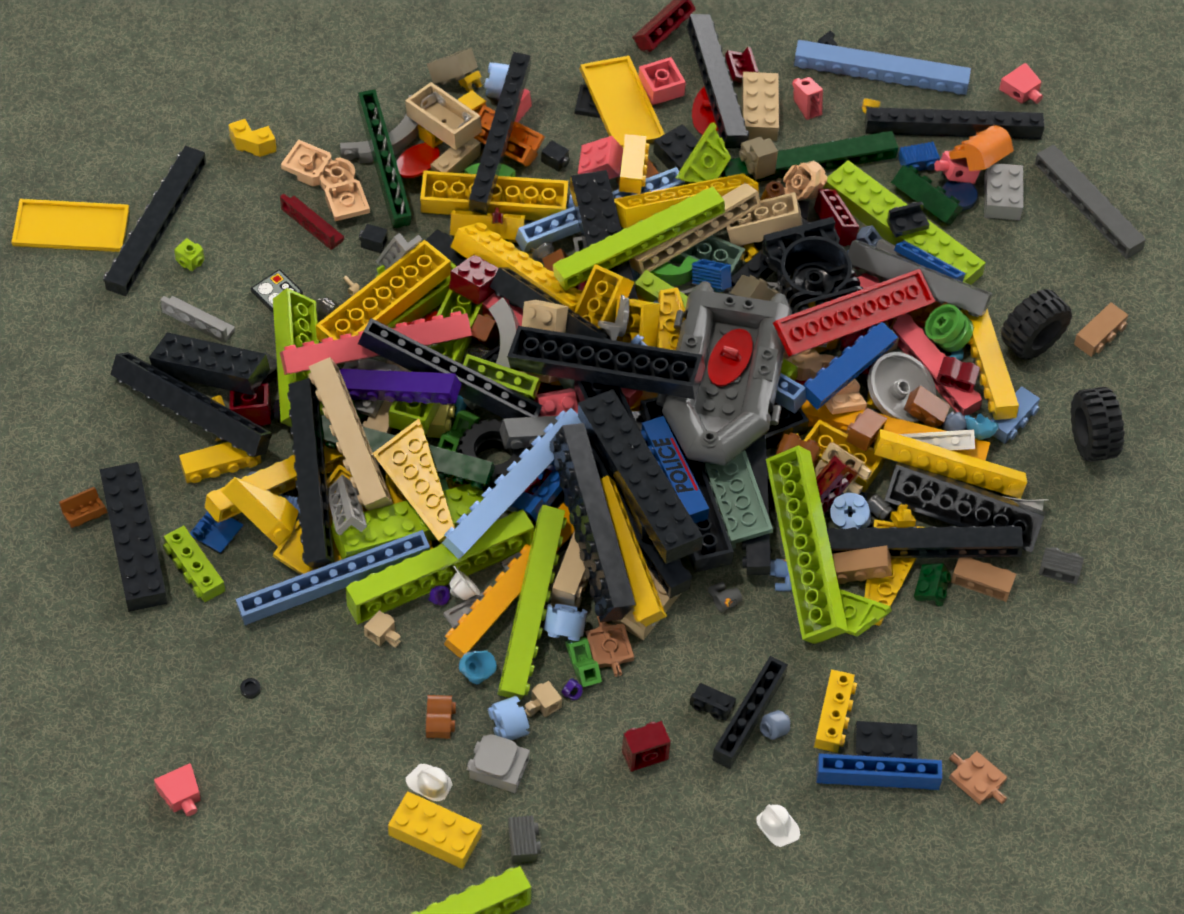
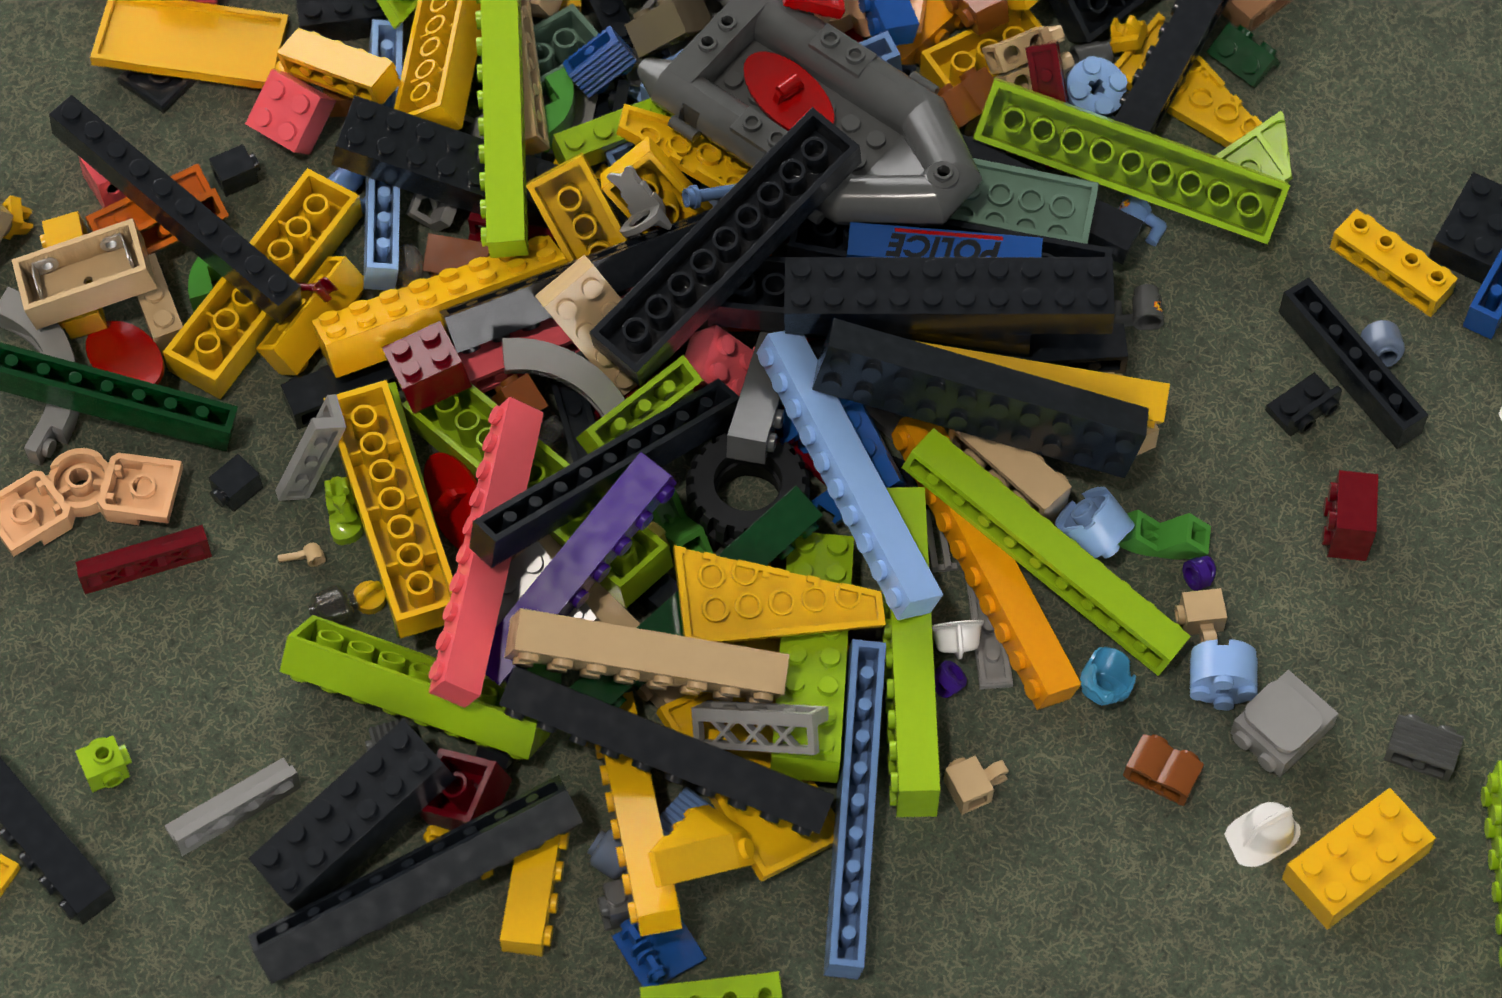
camera: 60 degrees left, 5 degrees up
(272, 286) = (247, 668): tile -> none
(496, 79) = (50, 175): light blue brick -> none
(610, 646) = (1152, 488): nougat plate -> none
(862, 564) = (1187, 108): medium nougat brick -> none

